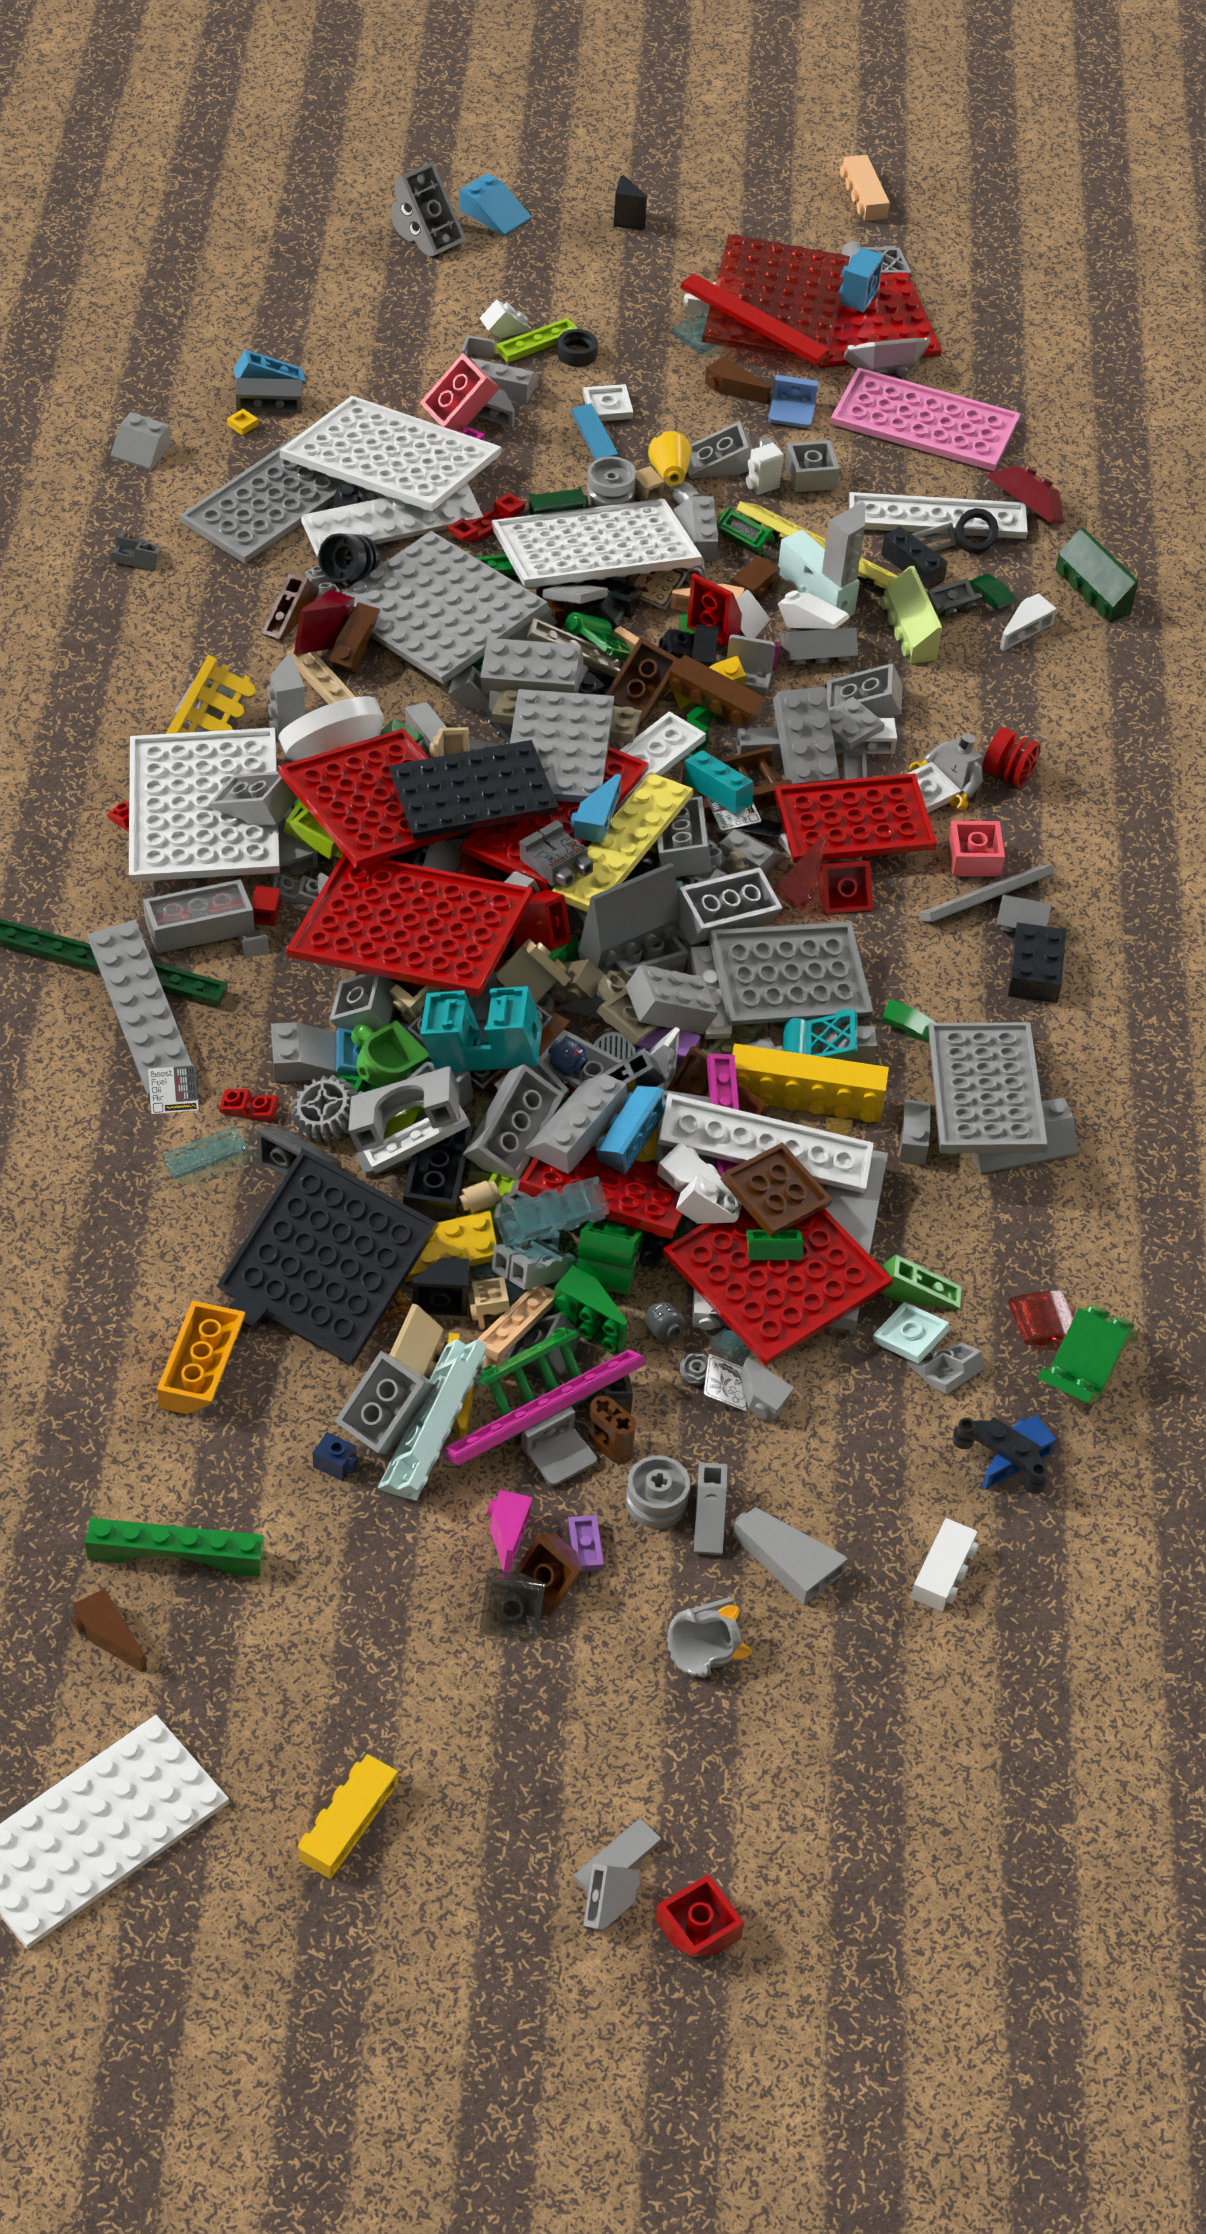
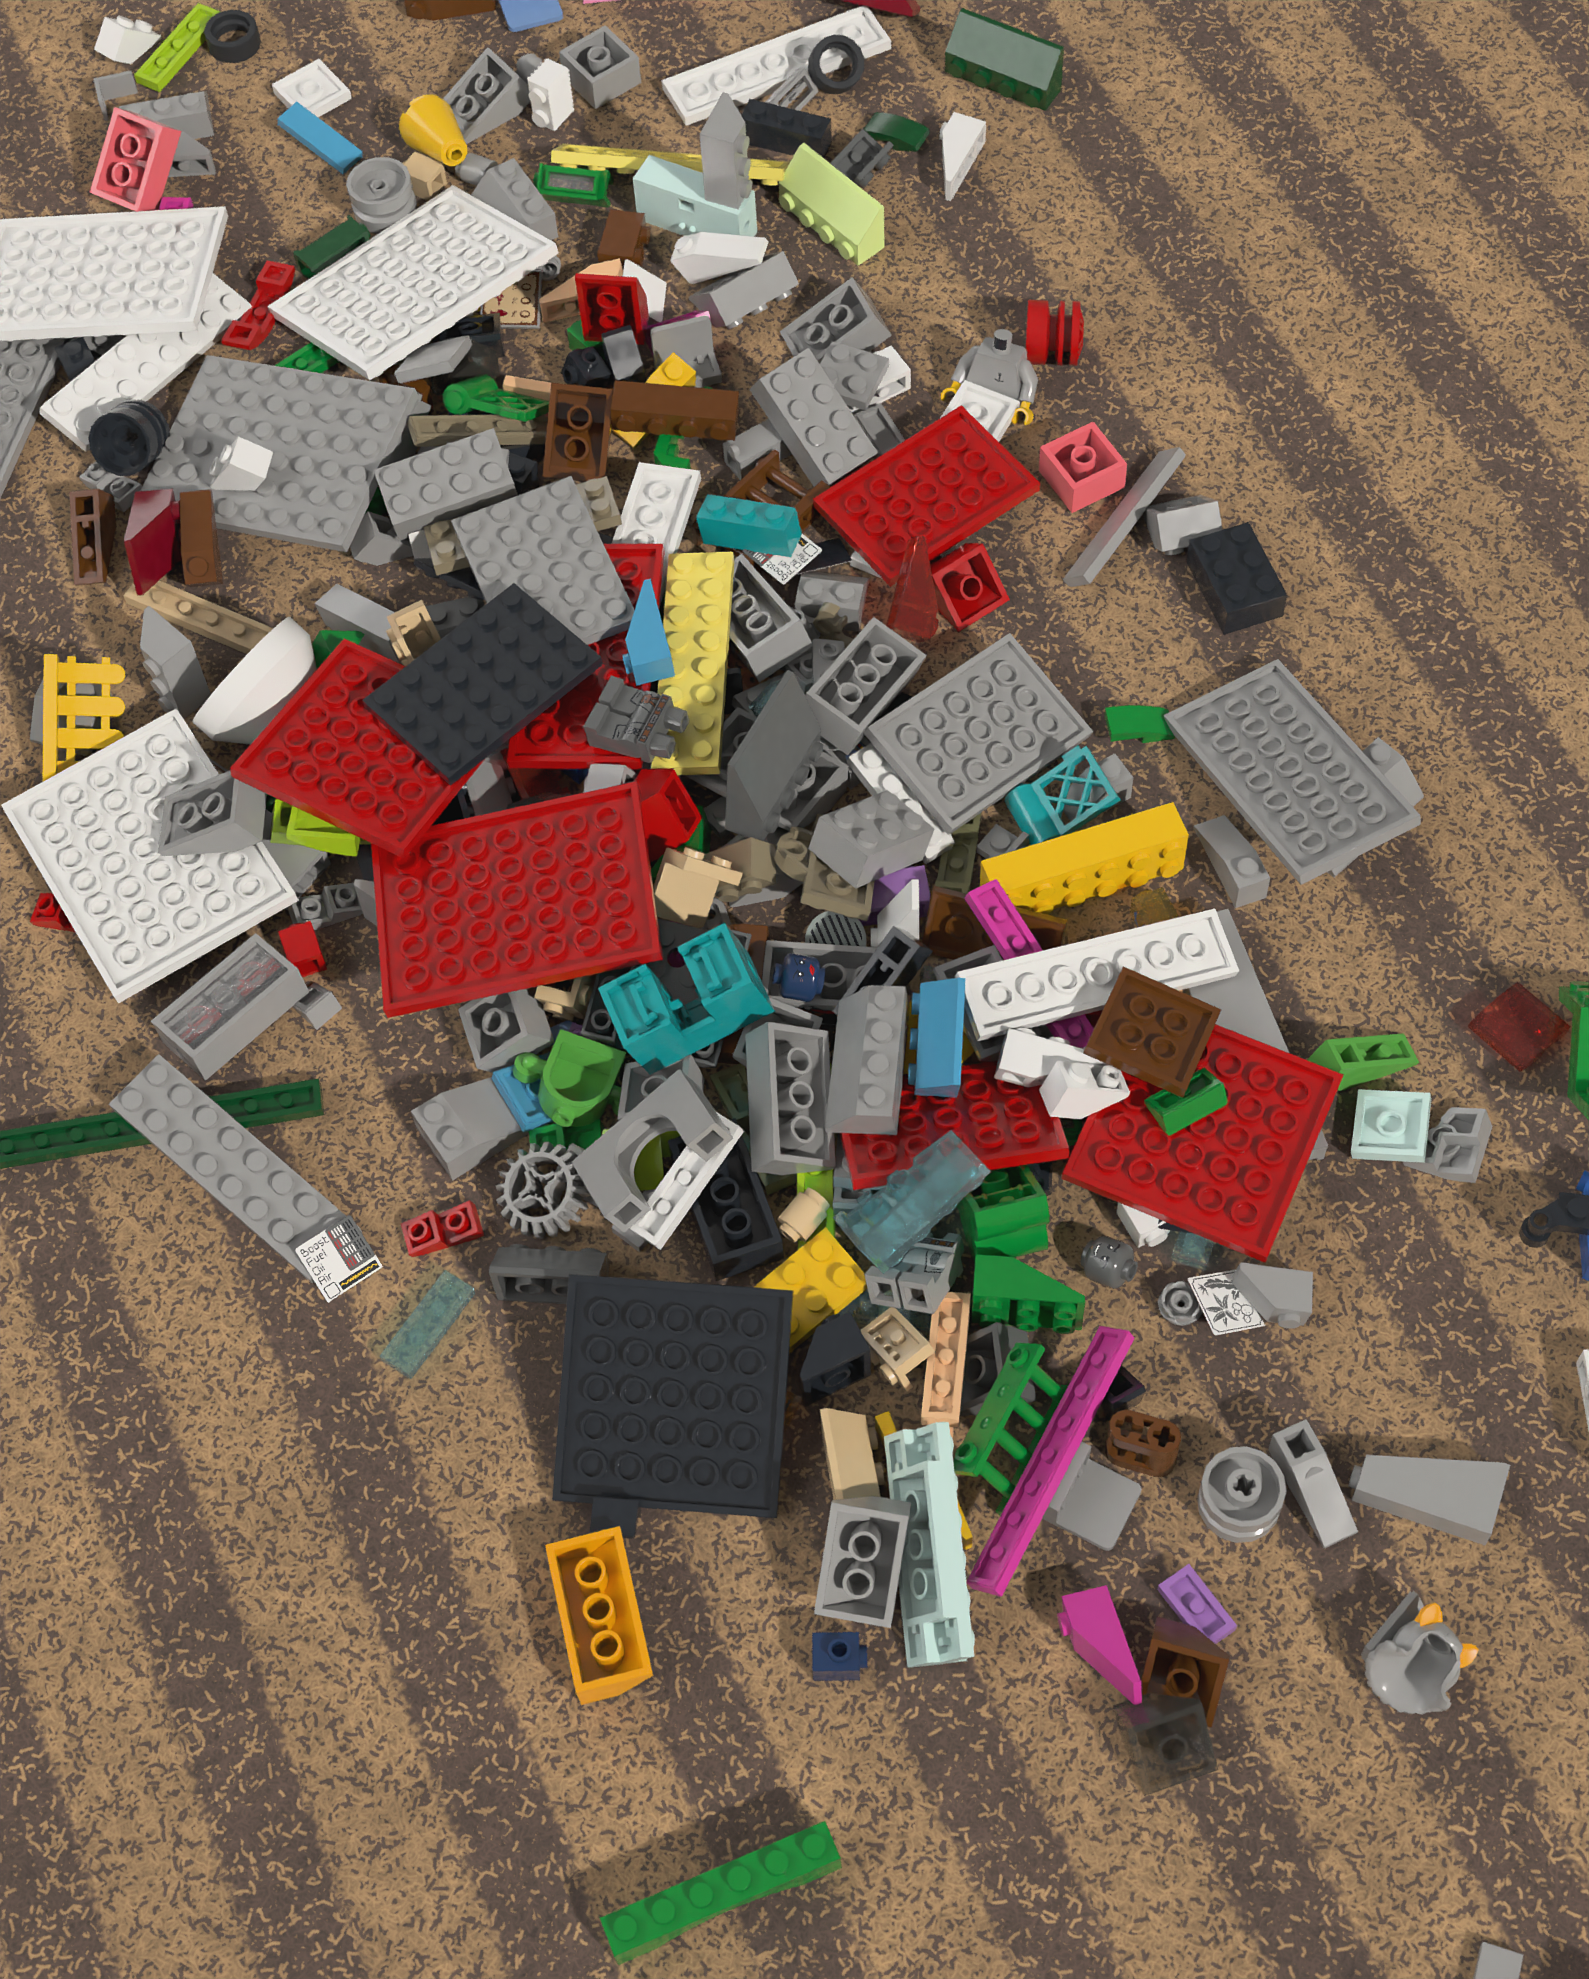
camera: 20 degrees left, 10 degrees up
(406, 601) = (240, 466): none -> white slope

